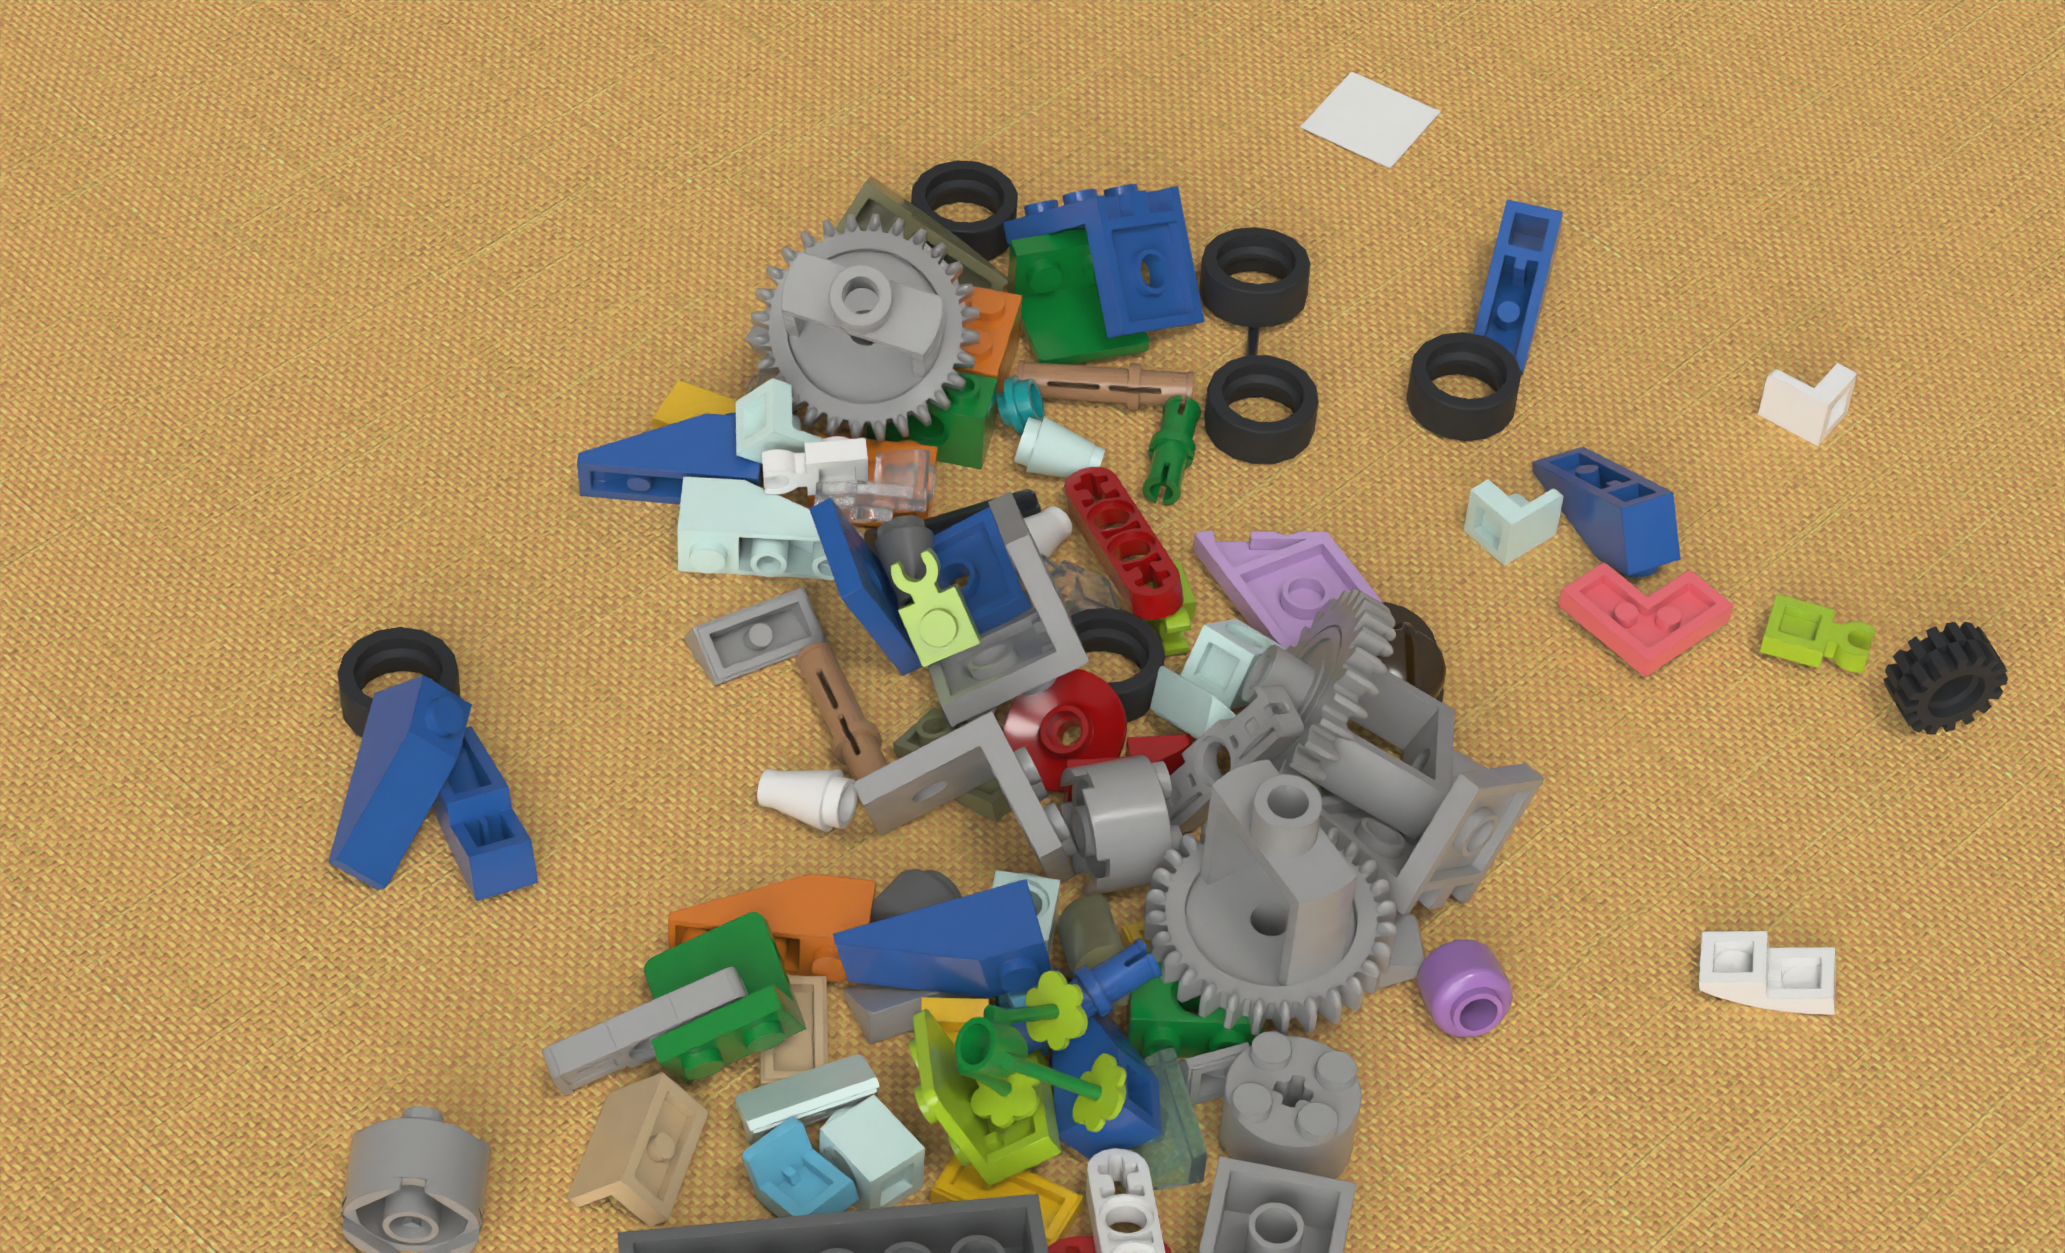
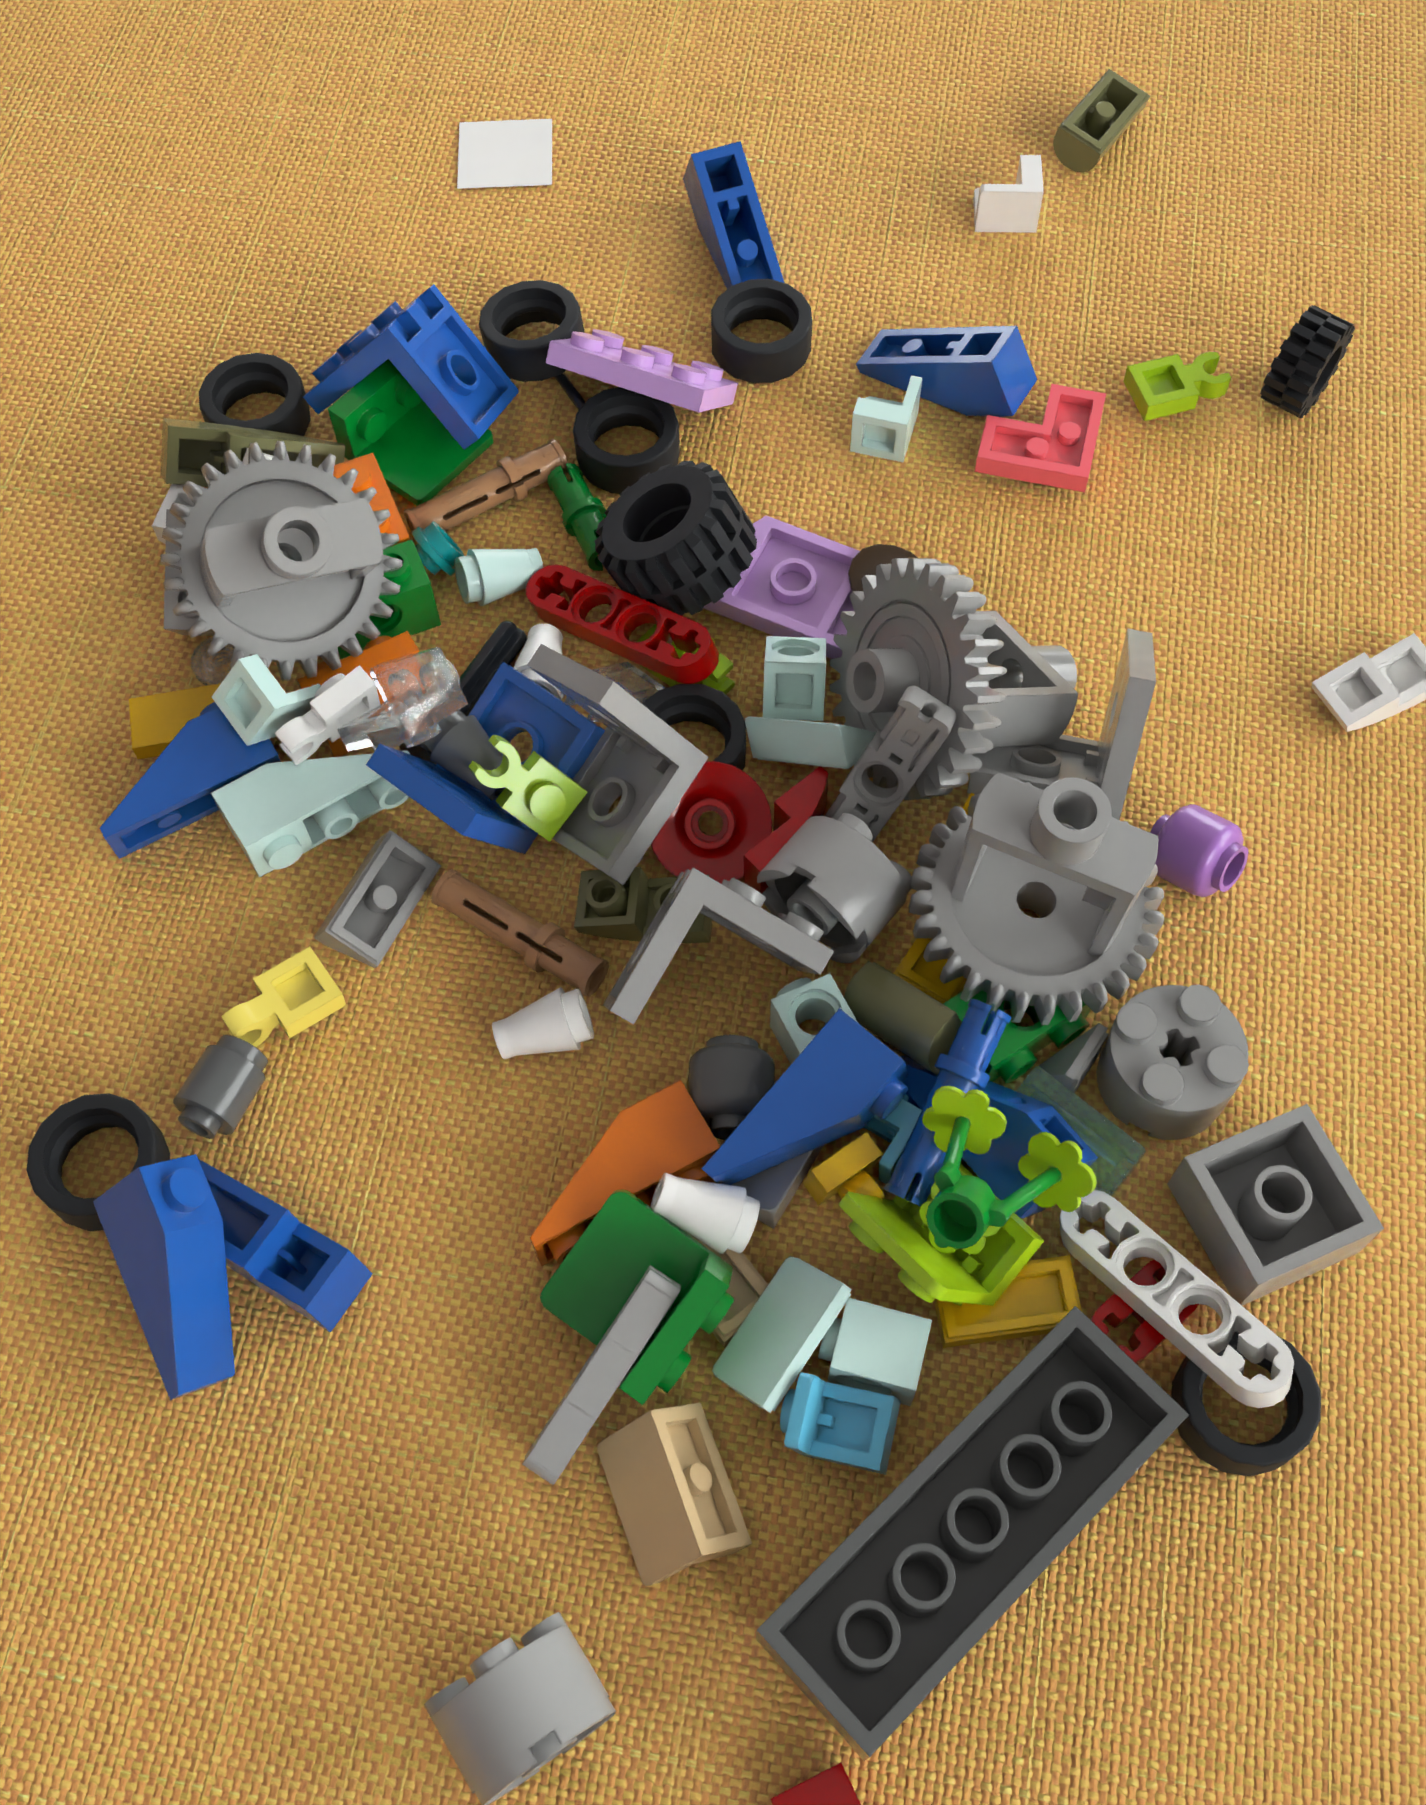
camera: 30 degrees left, 15 degrees up
(527, 690) = (220, 1087): none -> dark grey brick
(631, 662) = (290, 995): none -> light yellow plate
(819, 978) = (708, 1211): none -> white cone
(1221, 500) = (677, 538): none -> black tyre
(1319, 362) = (643, 370): none -> lavender plate
(1962, 378) = (1098, 122): none -> olive brick

